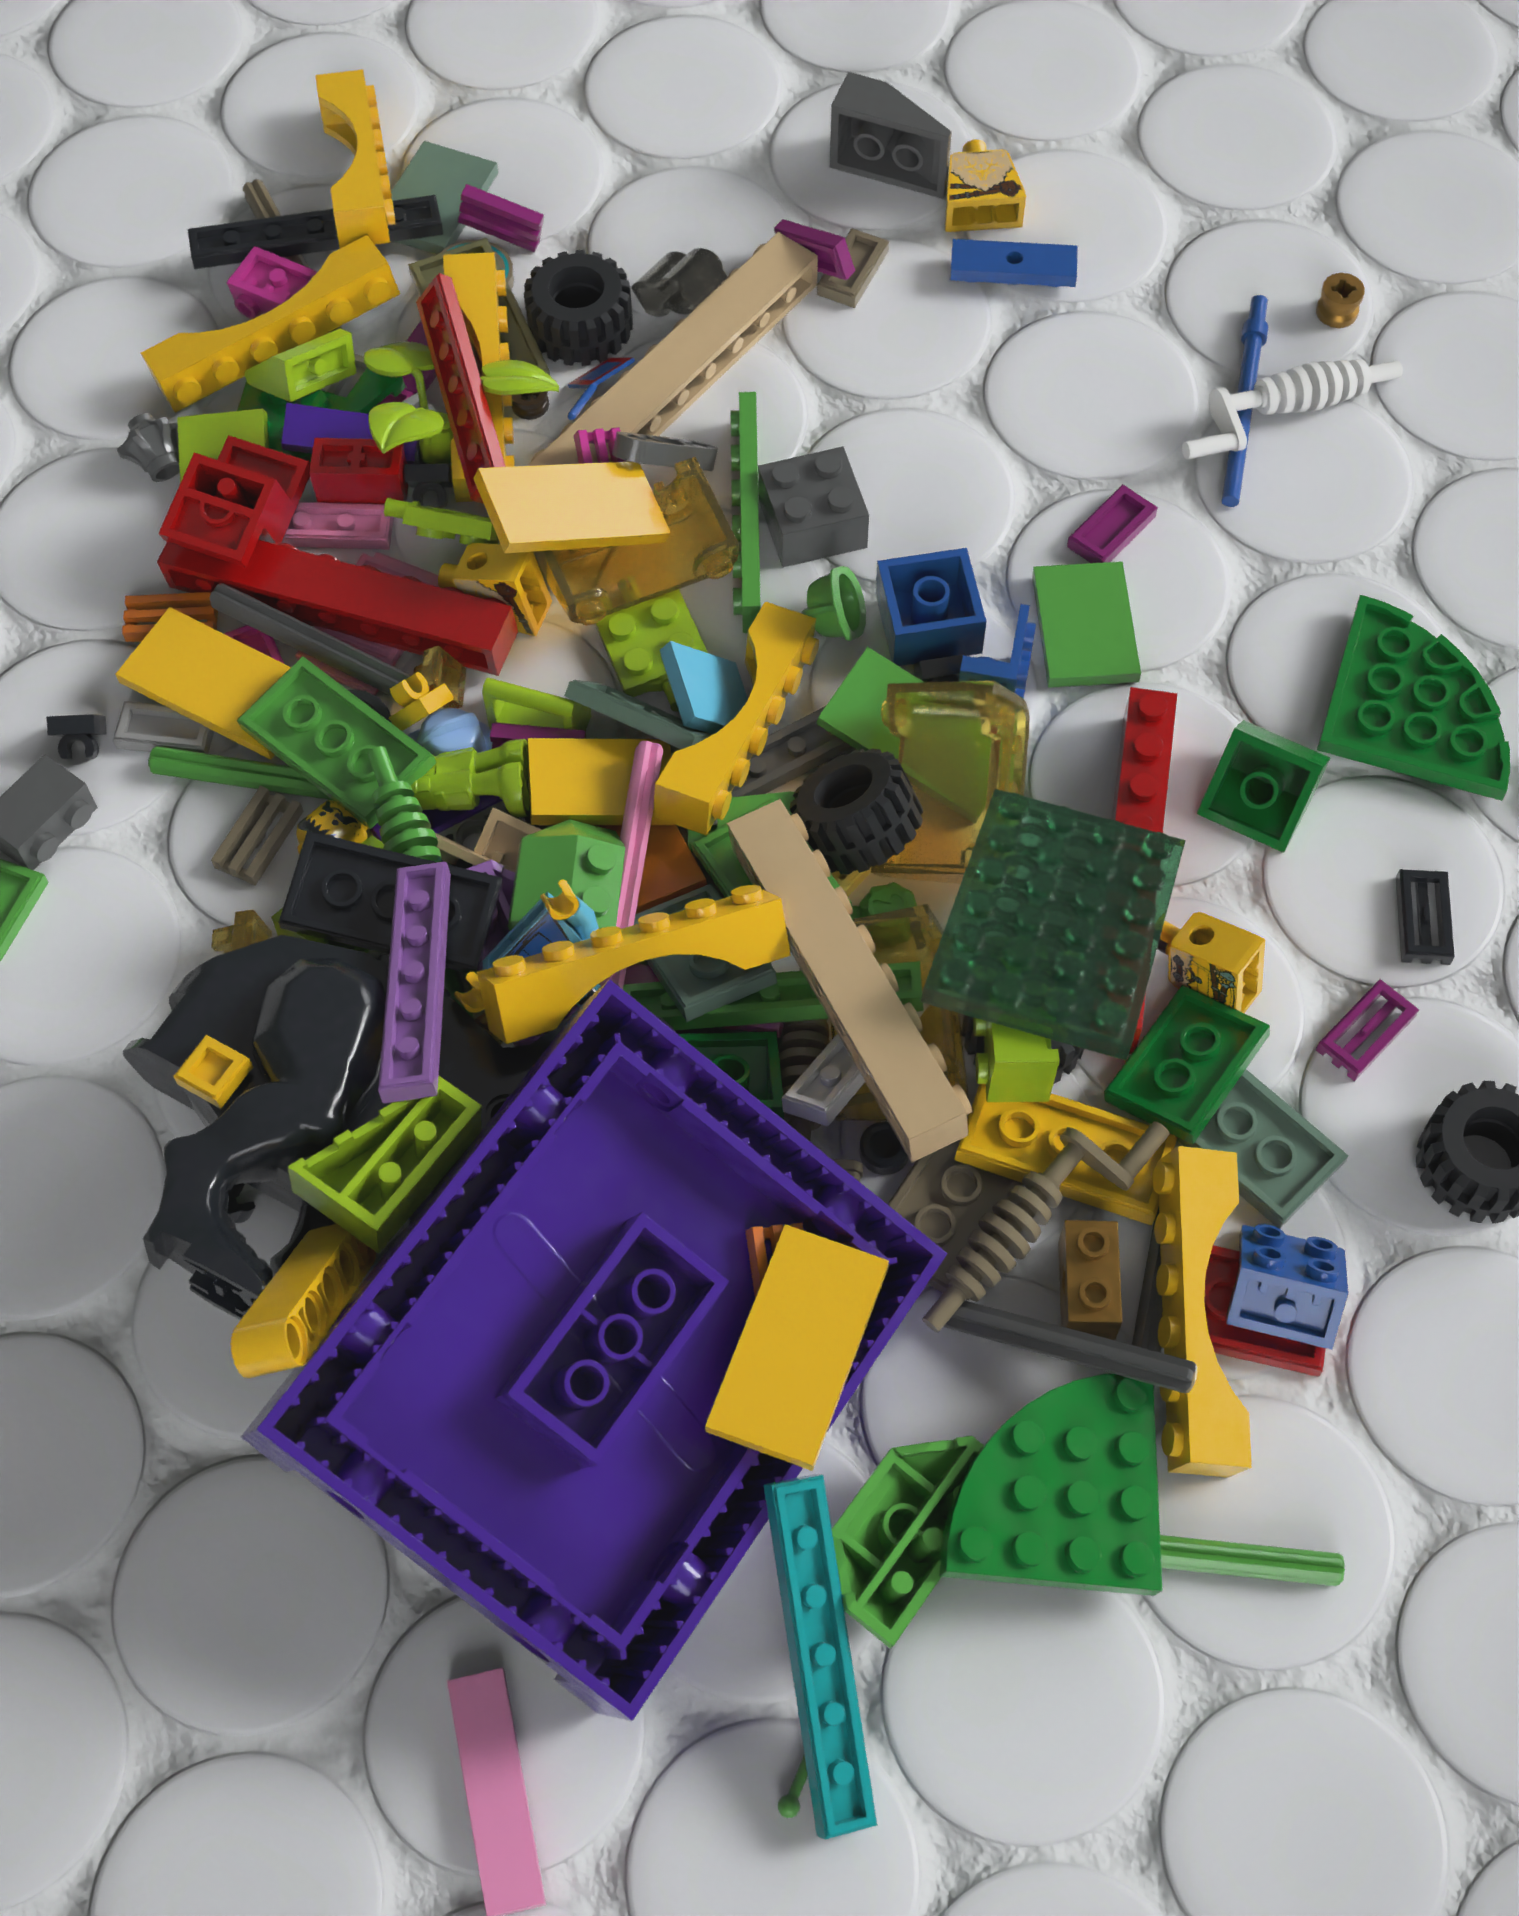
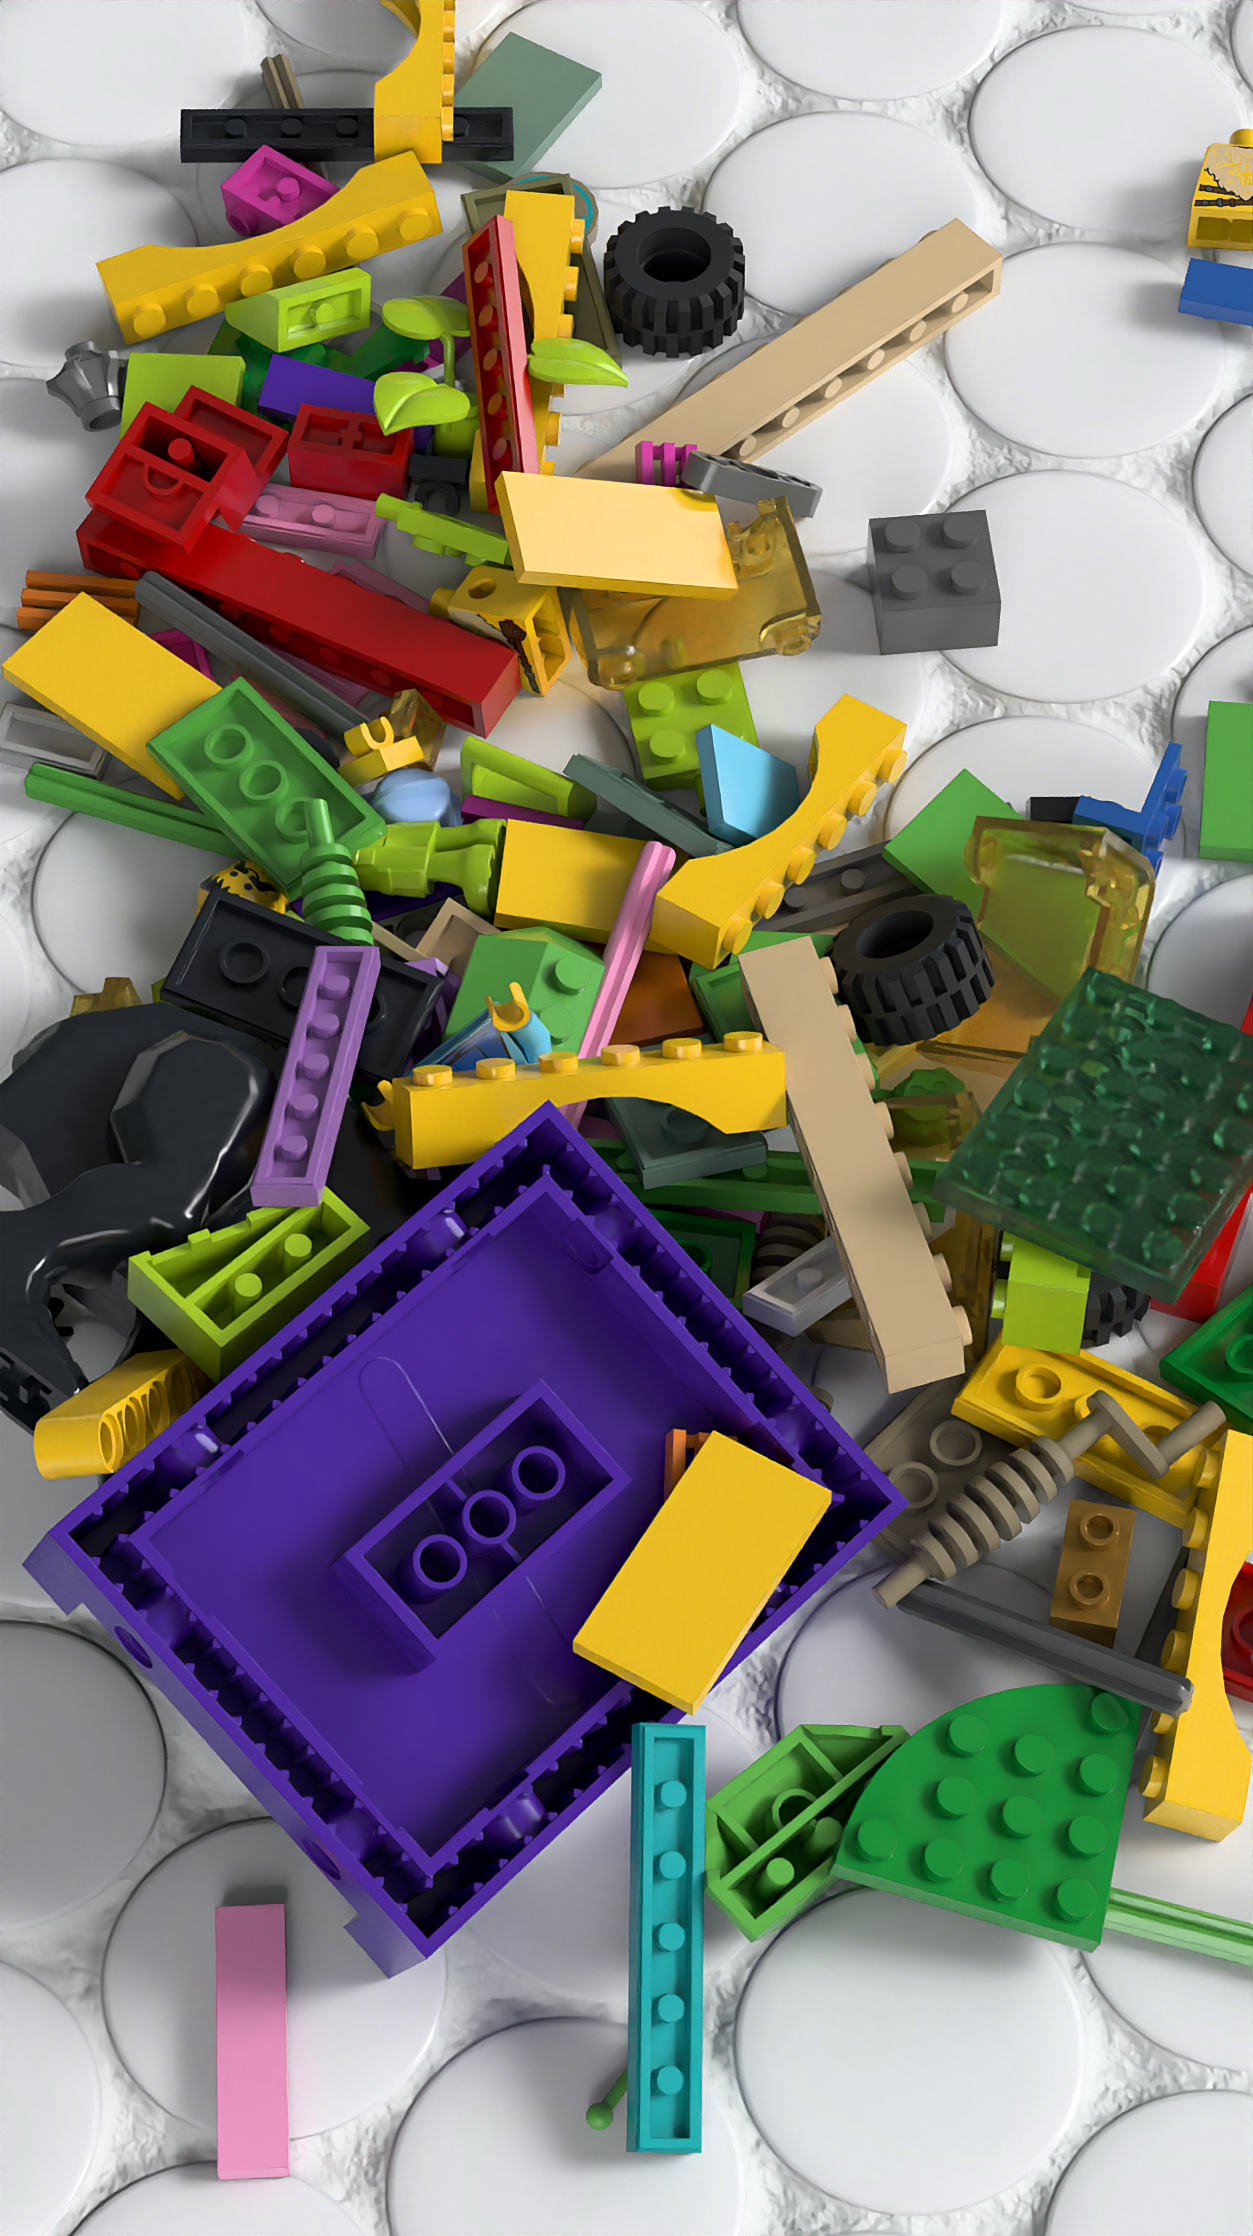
camera: 10 degrees right, 5 degrees down
(213, 1071) = (56, 1144): yellow tile -> none
(243, 826) = (139, 886): dark tan tile -> none
(500, 218) = (593, 149): magenta tile -> none
(532, 408) = (589, 404): dark brown bush -> none
(593, 378) = (677, 376): blue piece -> none
(679, 282) = (813, 266): clear smoke brick -> none
(745, 494) = (849, 555): bright green plate -> none
(831, 248) = (1021, 250): magenta tile -> none
(837, 604) = (940, 711): bright green piece -> none
(867, 255) = (1051, 277): dark tan tile -> none
(882, 1150) = (863, 1392): black tile -> none
(888, 137) = (1126, 110): dark grey slope -> none
(930, 606) = (1059, 730): blue brick -> none

